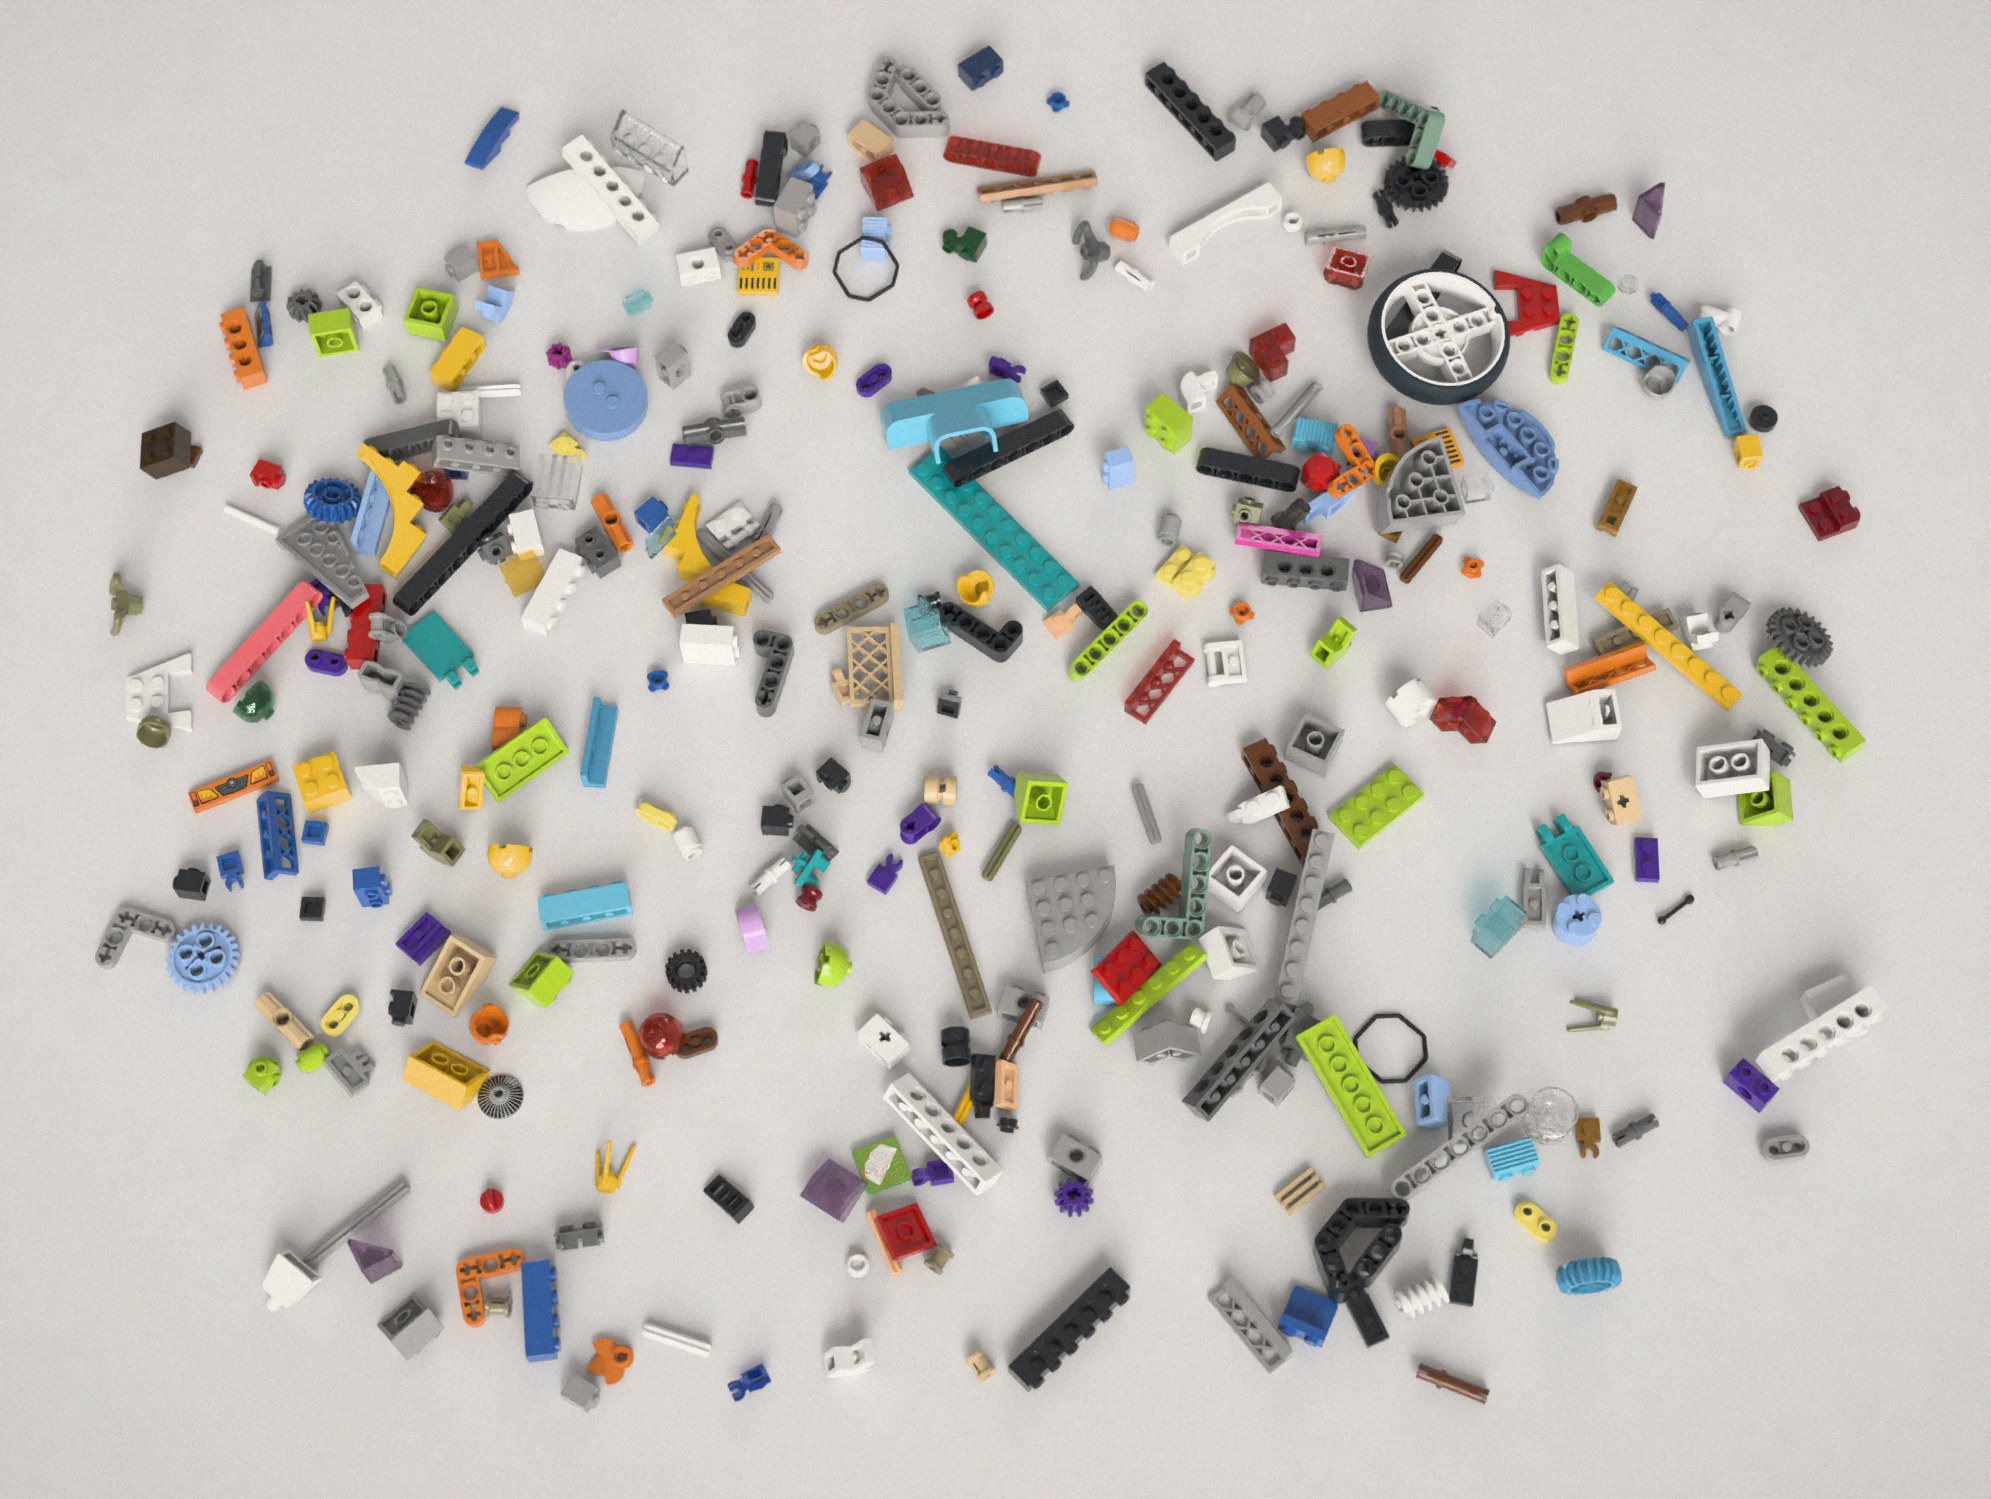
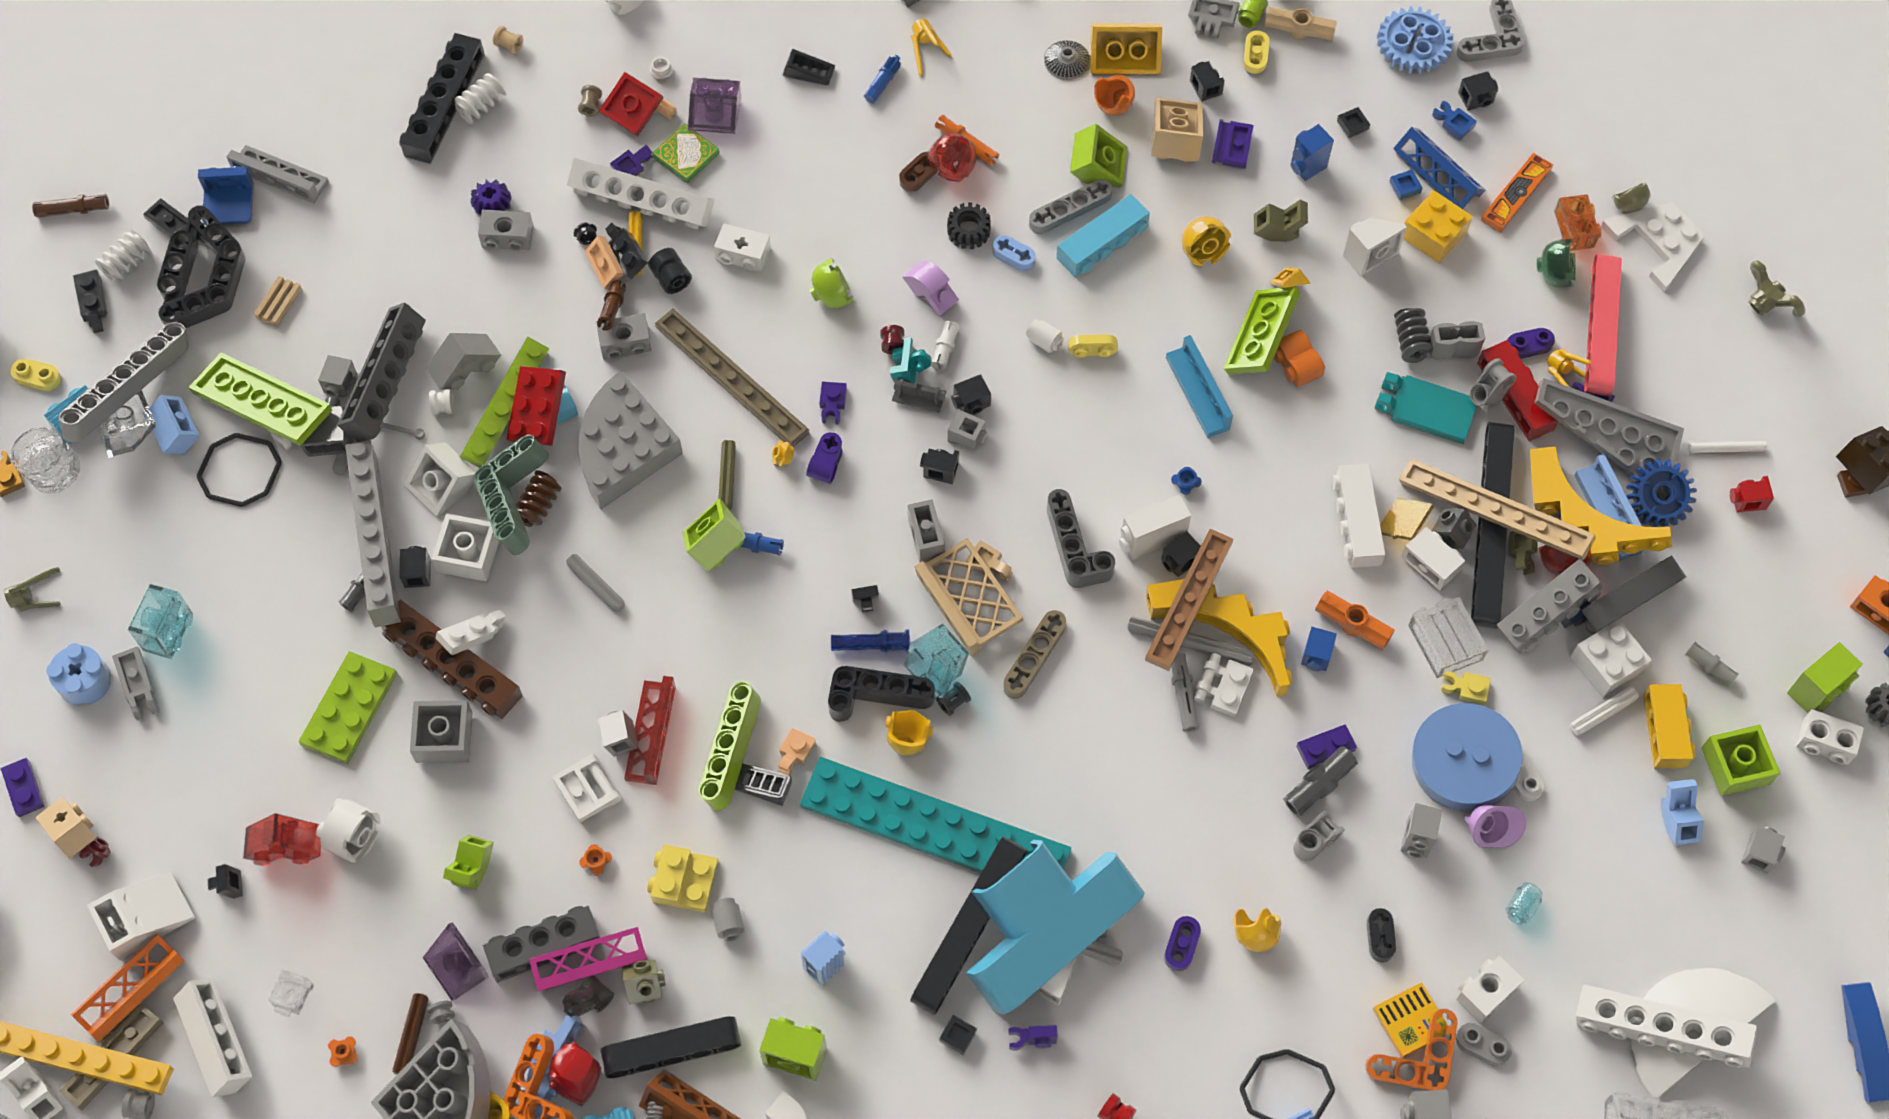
camera: 150 degrees right, 0 degrees up
(217, 735) = (1573, 224): none -> clear orange brick
(460, 535) = (1498, 509): none -> tan plate
(494, 261) = (1730, 875): orange wing -> none
(559, 356) = (1552, 786): magenta gear -> none
(597, 552) = (1345, 579): dark grey brick -> none
(660, 537) = (1288, 620): clear light blue piece -> none
(669, 928) = (1014, 252): none -> light blue beam
(669, 1153) = (884, 76): none -> blue piece
(933, 786) = (821, 499): tan wheel -> none
(955, 666) = (884, 641): none -> clear blue pin
(1038, 1307) = (478, 97): none -> white piece
(1184, 686) = (618, 733): none -> brick
(1514, 714) = (227, 881): none -> black tile
(1573, 858) = (104, 746): teal tile -> none

